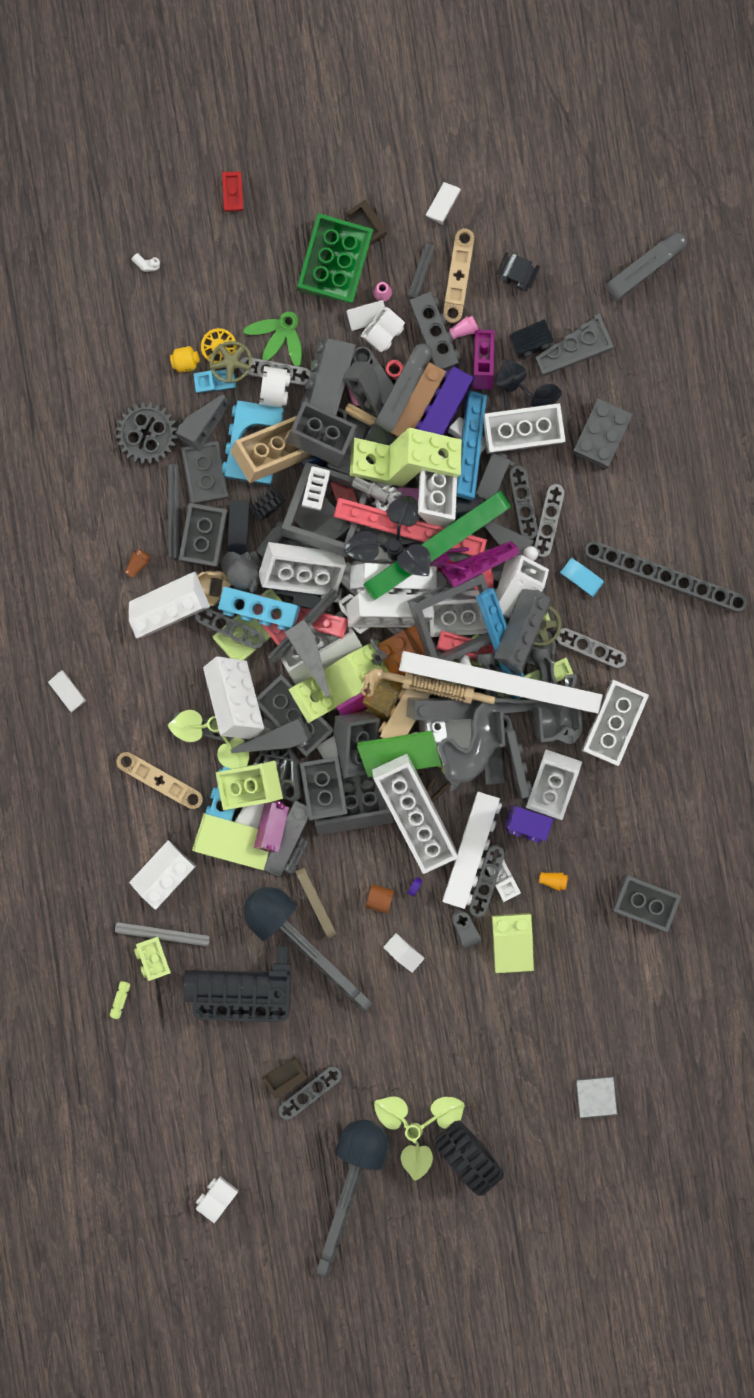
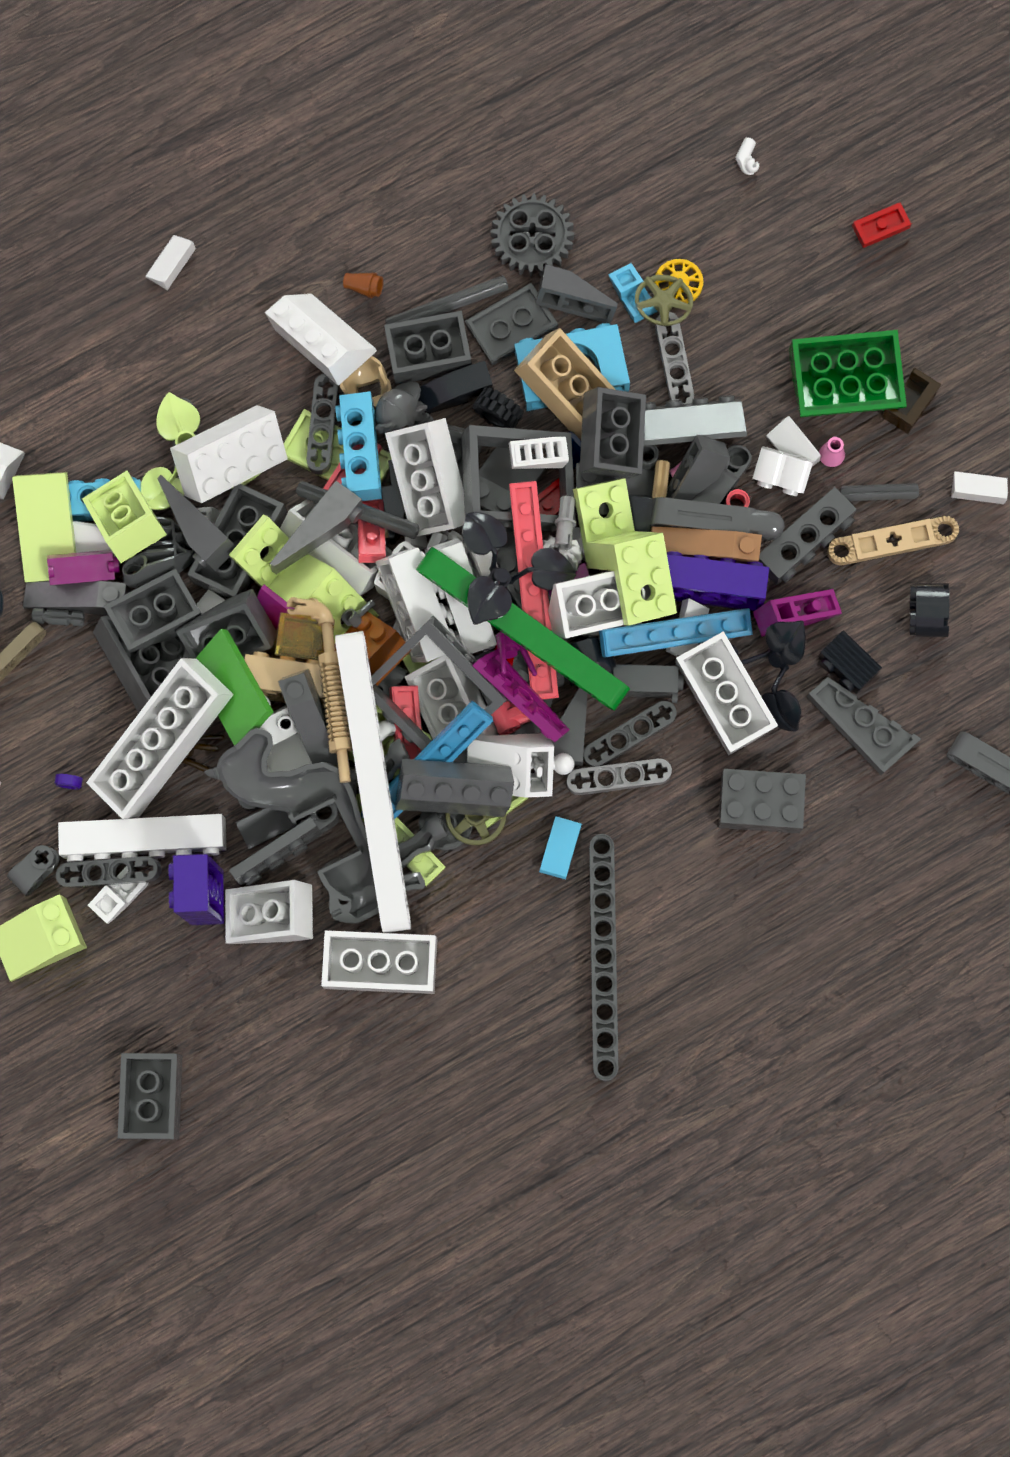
camera: 75 degrees right, 10 degrees down
(172, 787) = (92, 430): tan piece -> none
(184, 359) = (644, 245): yellow head -> none
(274, 387) = (651, 360): white brick -> none
(282, 331) = (730, 351): bright green plant -> none
(379, 898) = (36, 741): dark orange piece -> none
(464, 327) = (829, 573): bright pink cone -> none
(554, 880) = (140, 963): light orange cone -> none
(589, 651) = (467, 895): light grey beam -> none

